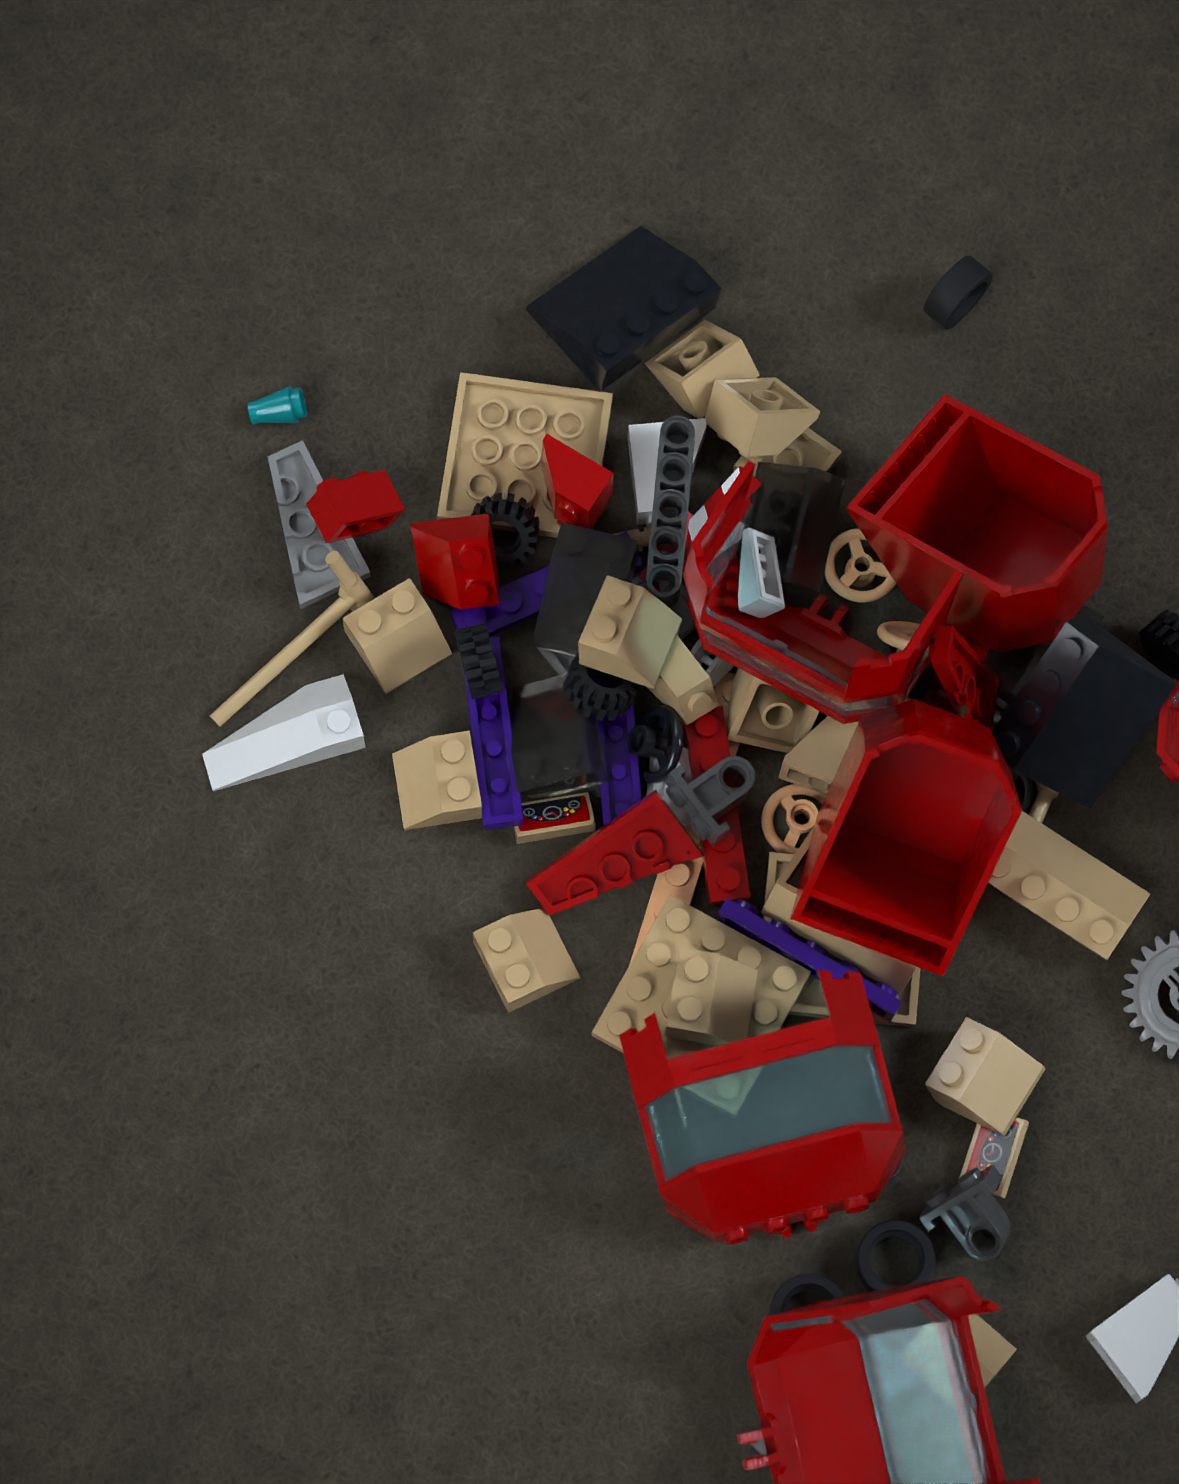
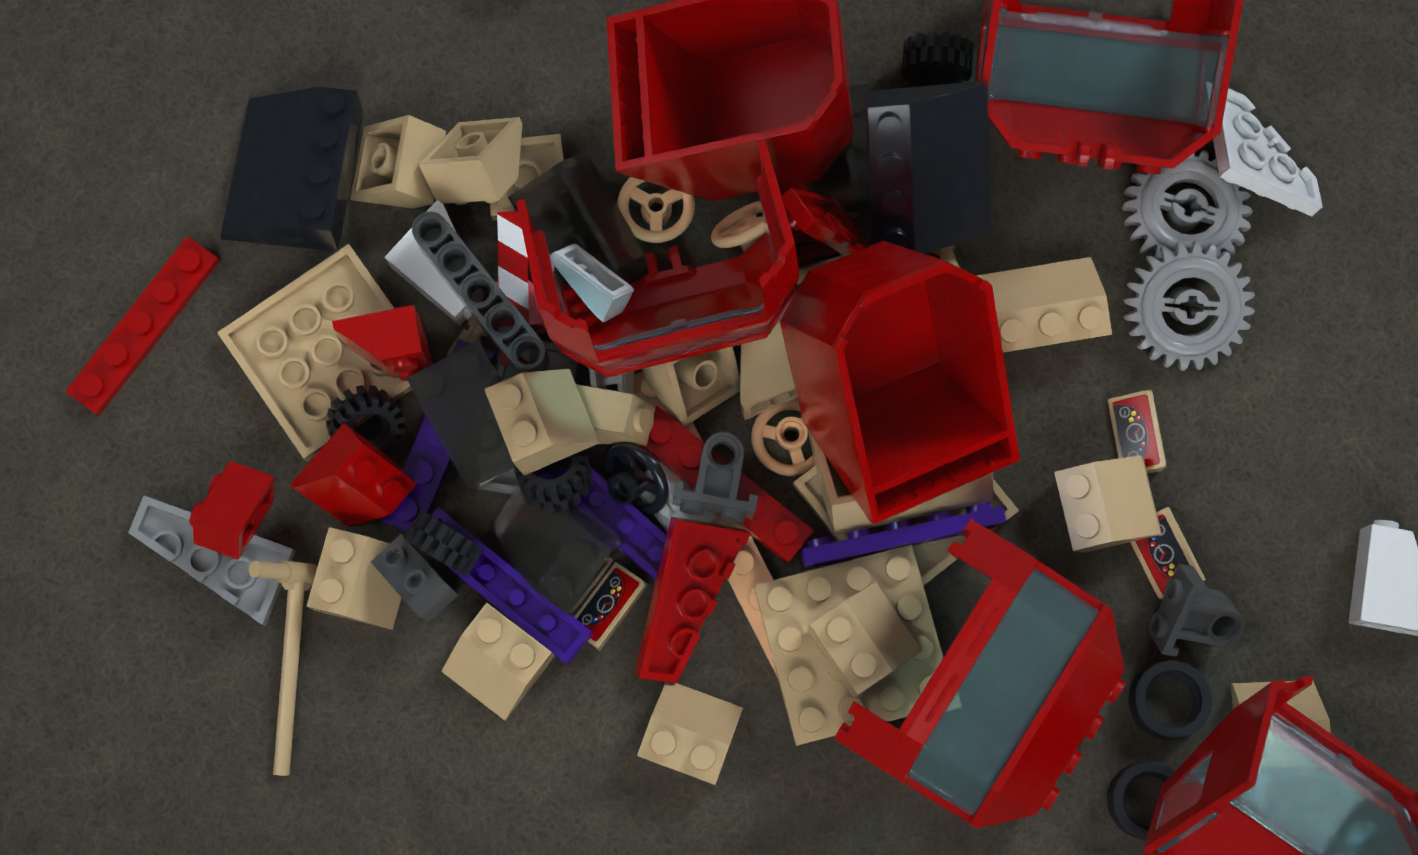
camera: 40 degrees left, 5 degrees up
(279, 407) = (101, 485): teal cone -> none
(297, 731) = (351, 724): white wedge -> none
(413, 321) = (142, 326): none -> red plate
(434, 670) = (414, 579): none -> dark grey pin
(1062, 1050) = (1137, 429): none -> slope

